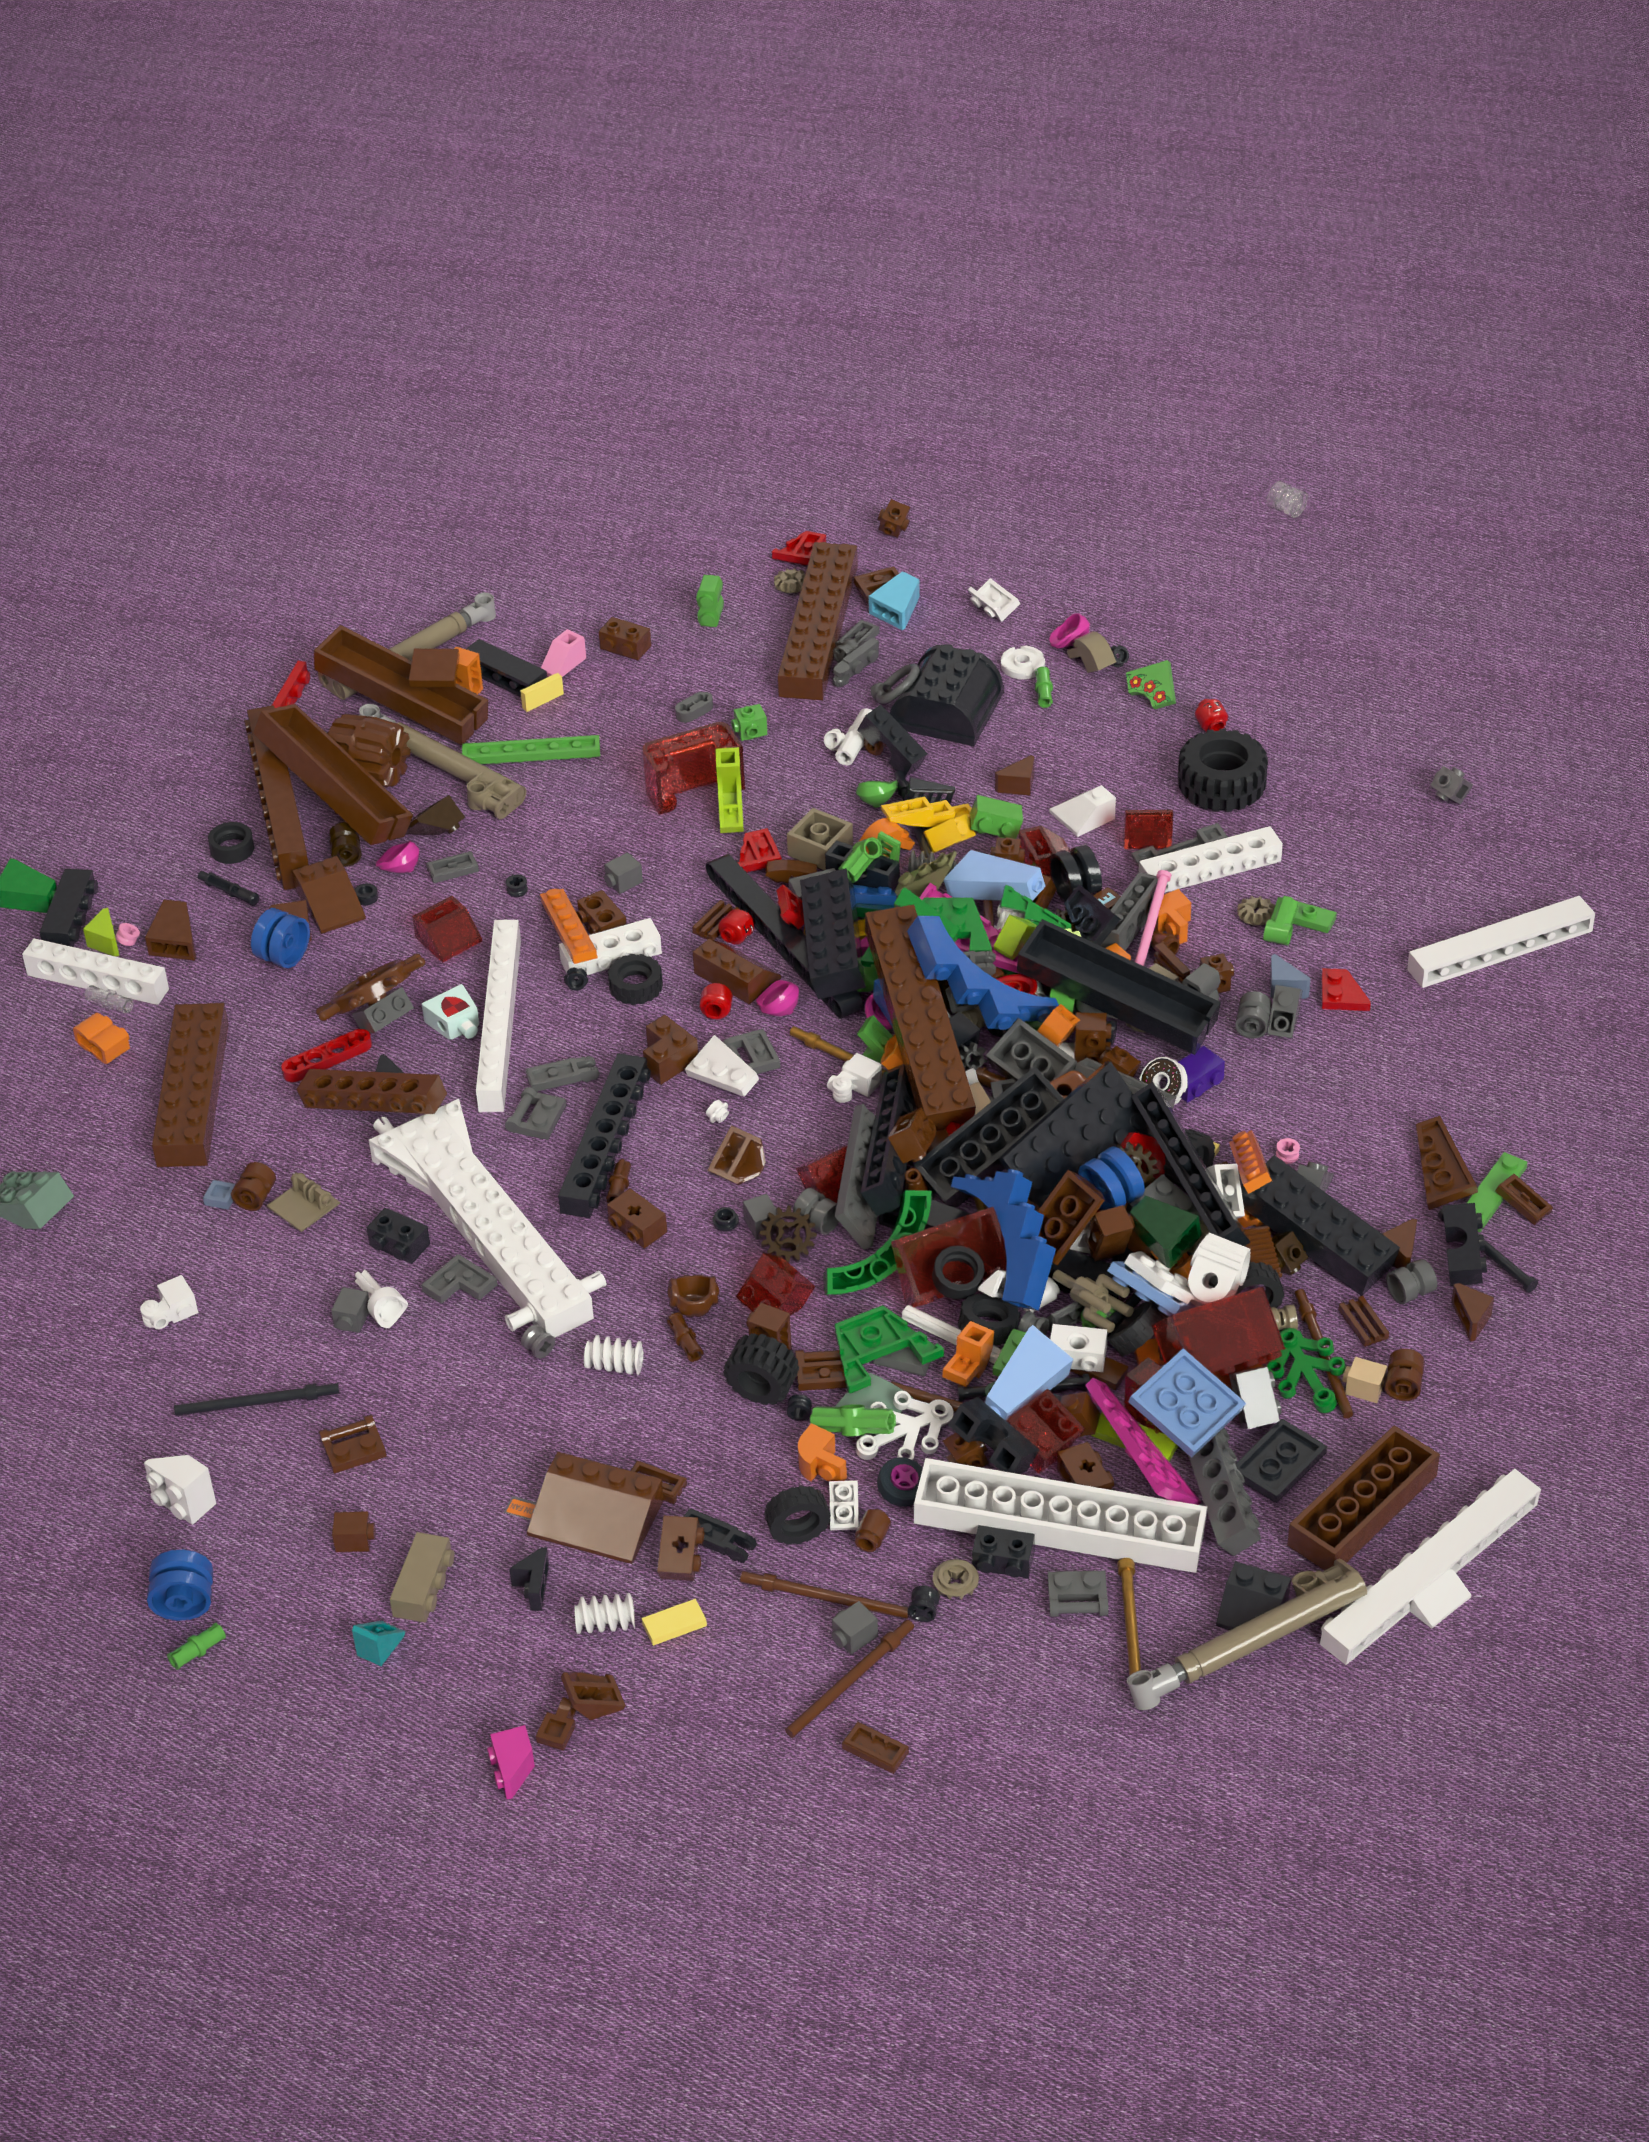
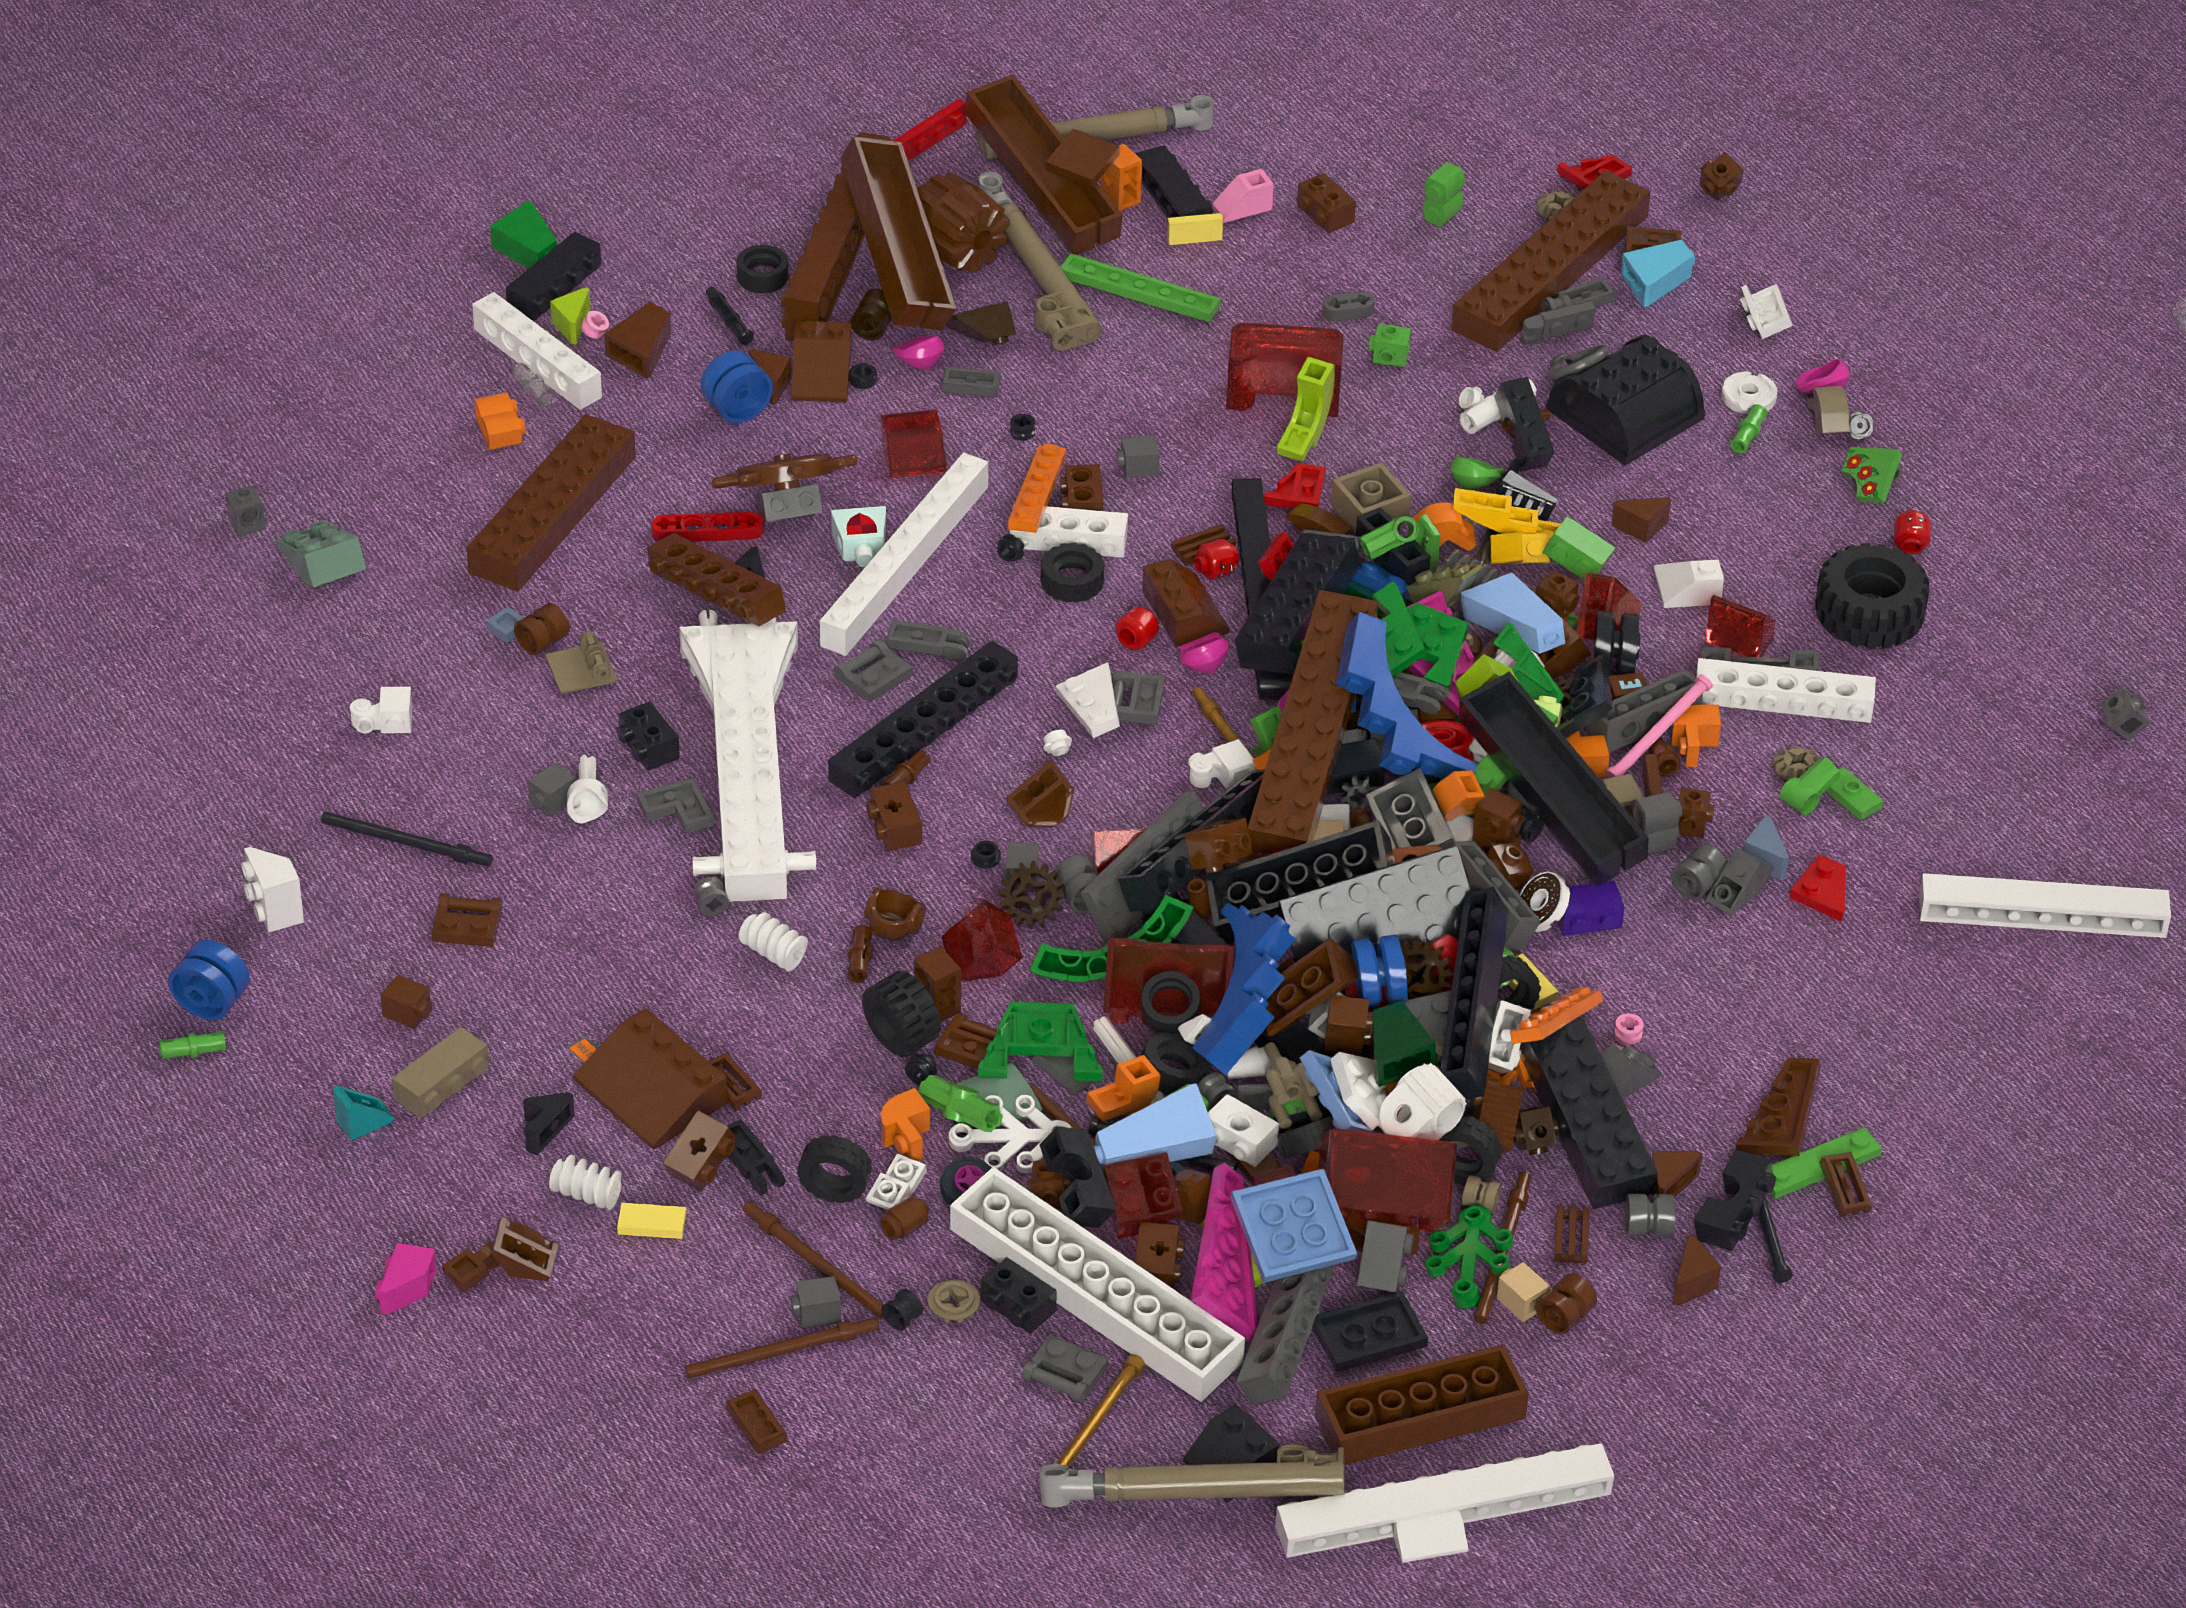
camera: 25 degrees right, 0 degrees up
(668, 1049) = (1050, 660): reddish brown brick -> none

